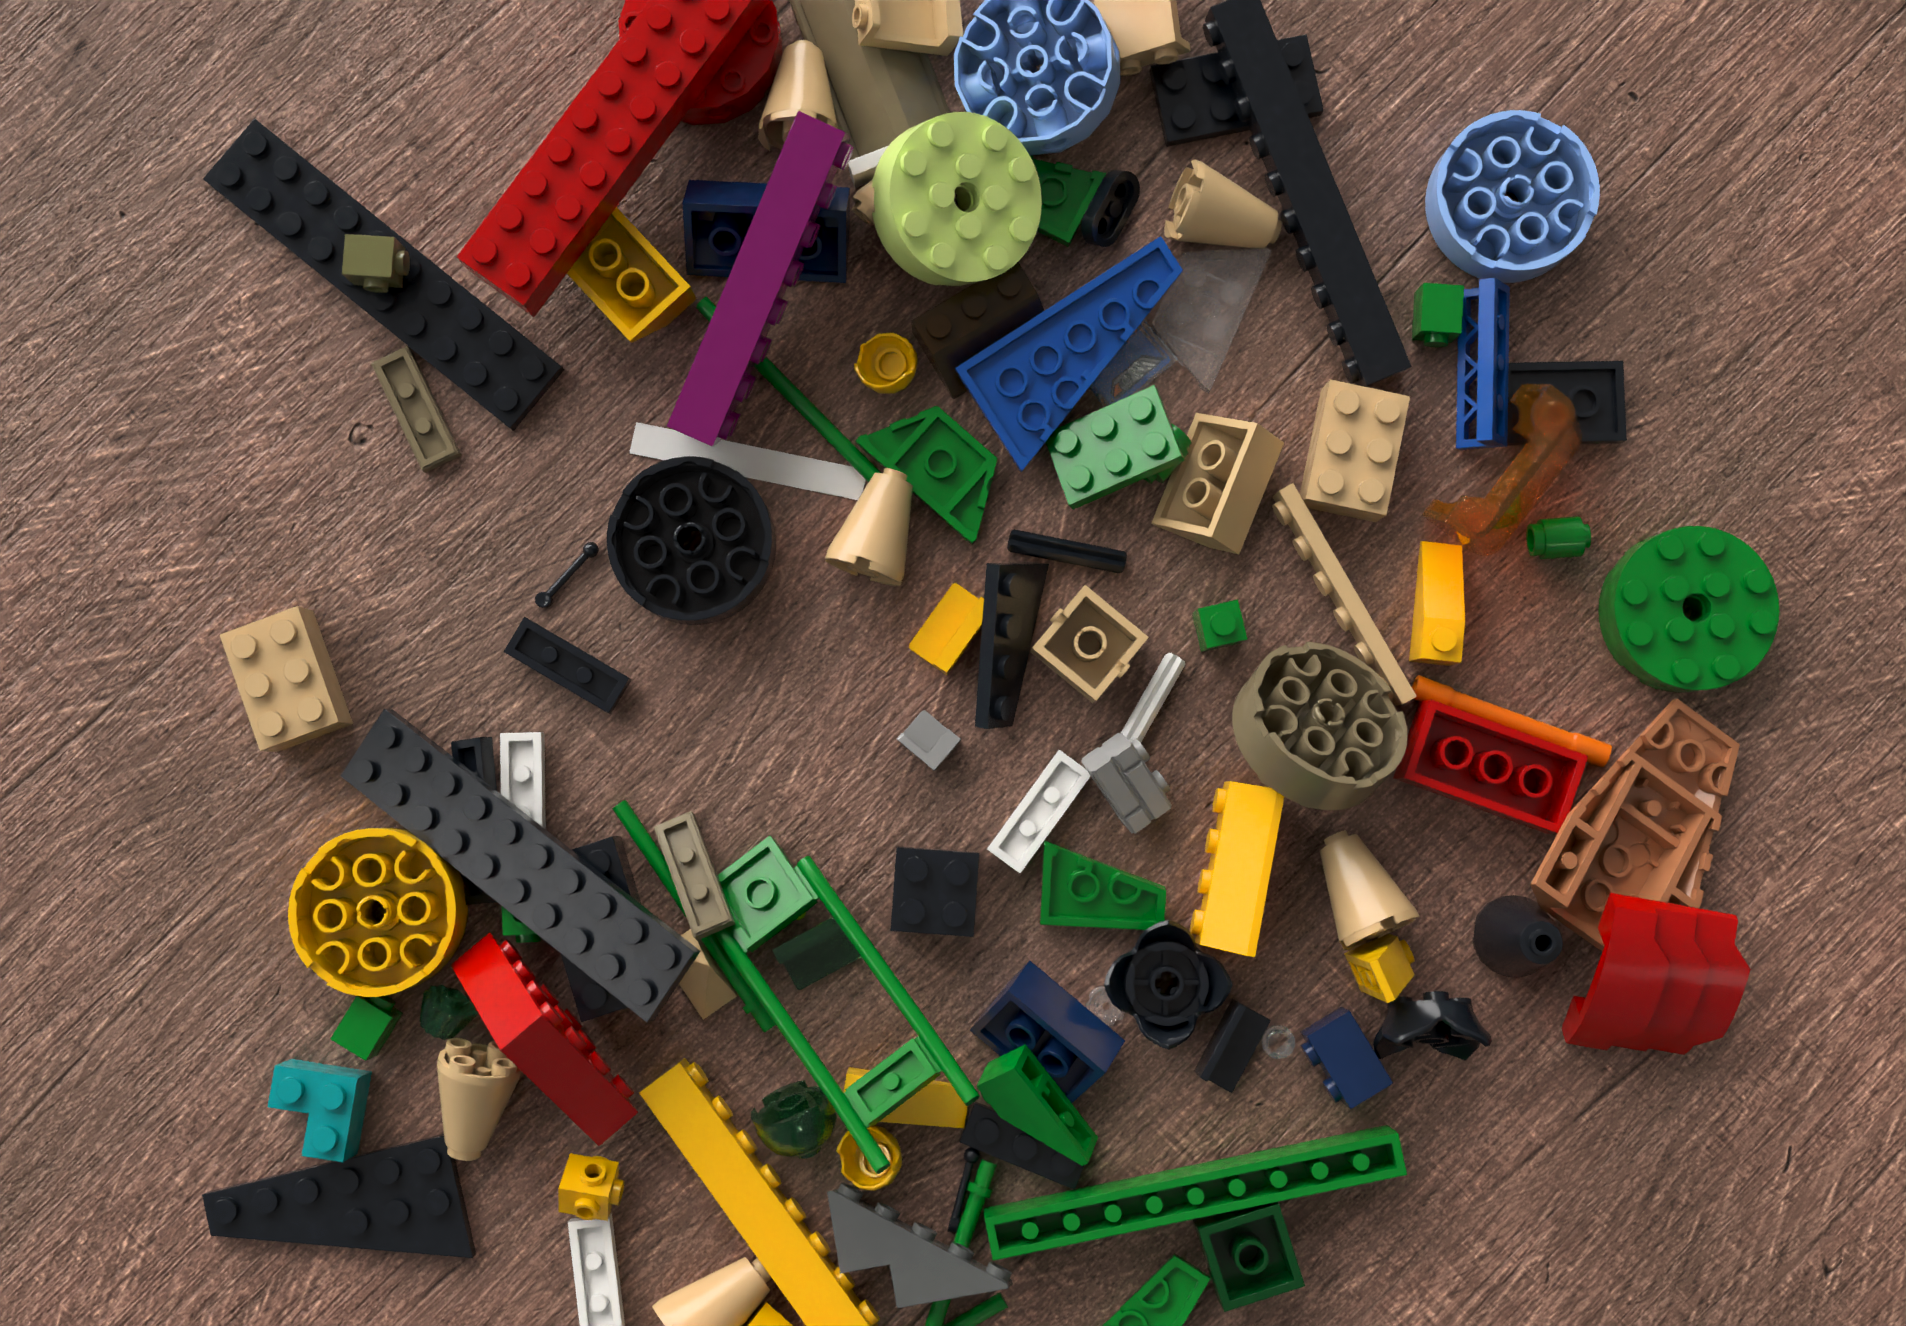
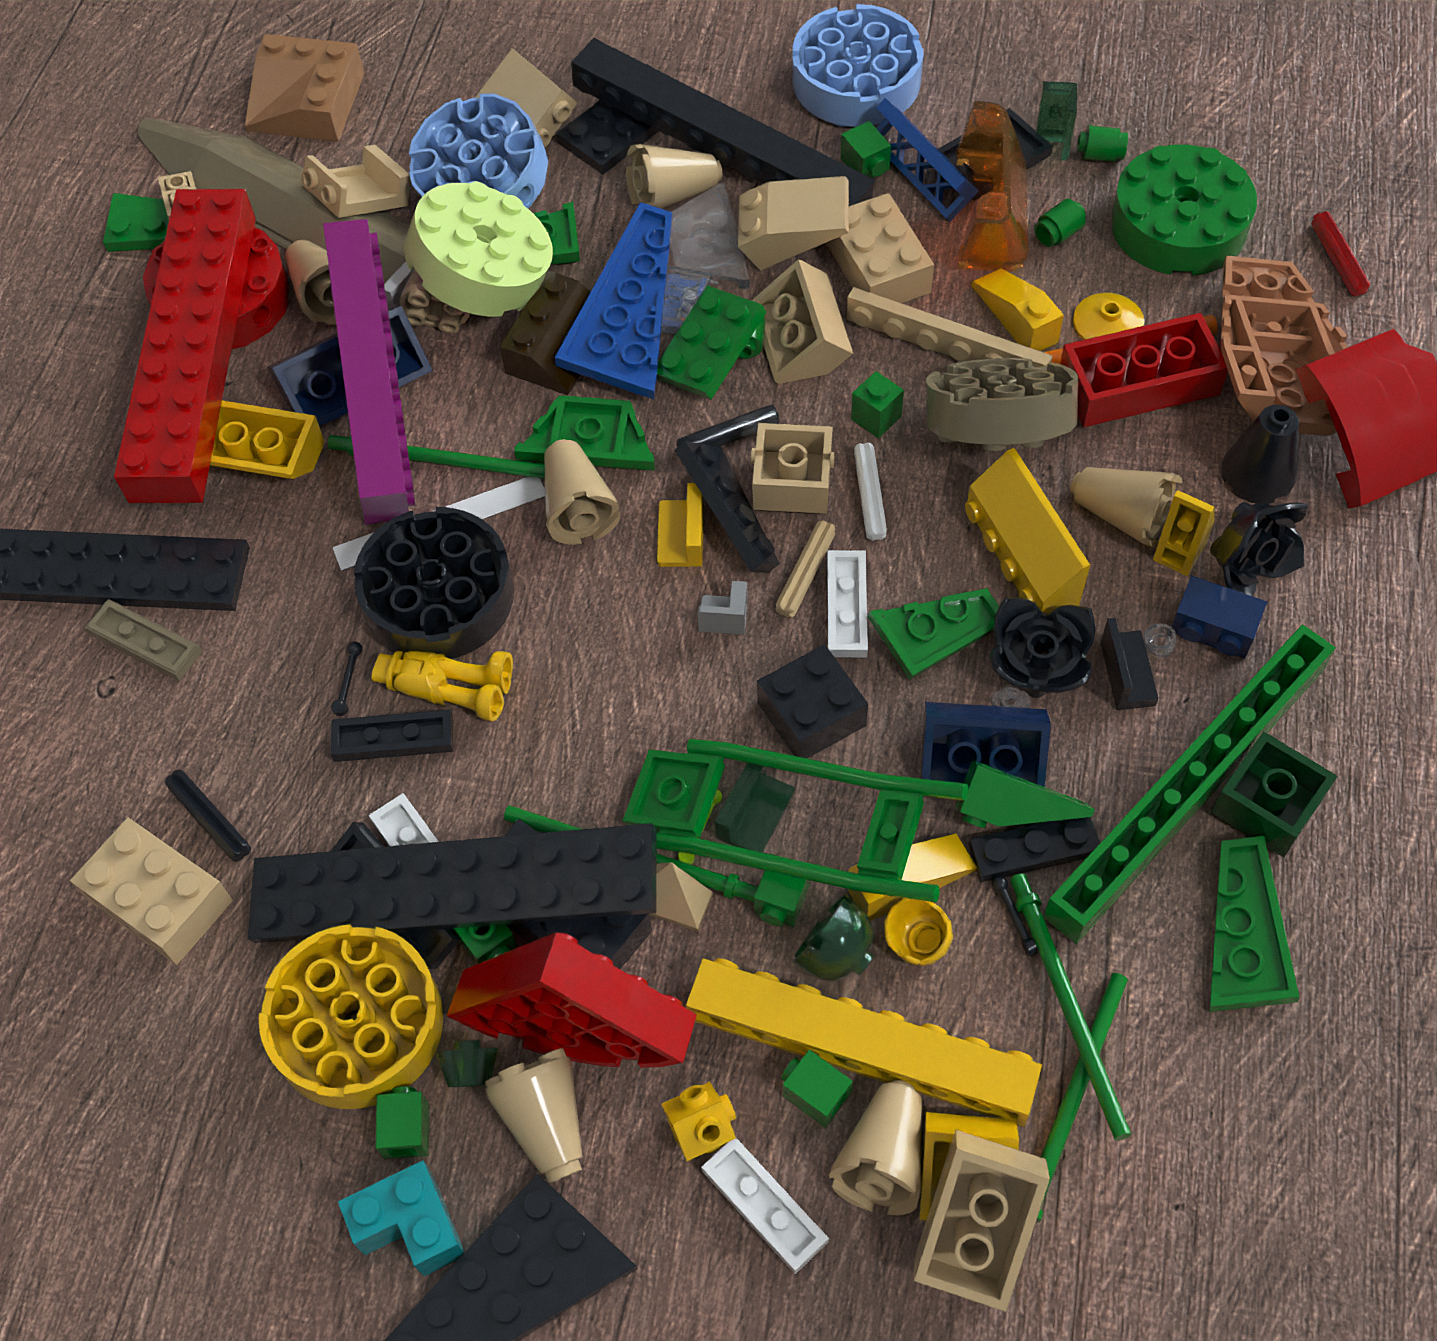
camera: 30 degrees left, 25 degrees down
(373, 632) = (208, 815): none -> black axle
(375, 262) = (46, 545): olive brick -> none
(631, 629) = (426, 676): none -> yellow piece
(694, 875) = (596, 808): dark tan tile -> none
(697, 1222) = (815, 1087): none -> green brick
(775, 1049) = (780, 898): none -> green brick
(886, 363) = (501, 392): yellow hair -> none
(919, 1264) = (1028, 977): dark grey slope -> none
(1031, 748) = (805, 569): none -> tan axle
(1110, 208) = (592, 220): black plate -> none
(1127, 782) = (896, 535): light grey brick -> none
(1295, 359) = (791, 218): none -> tan slope
(1496, 675) = (1105, 315): none -> yellow dish
(1659, 411) = (1057, 113): none -> clear green panel
(1680, 470) = (1102, 143): none -> green brick
(1798, 763) = (1340, 254): none -> red axle

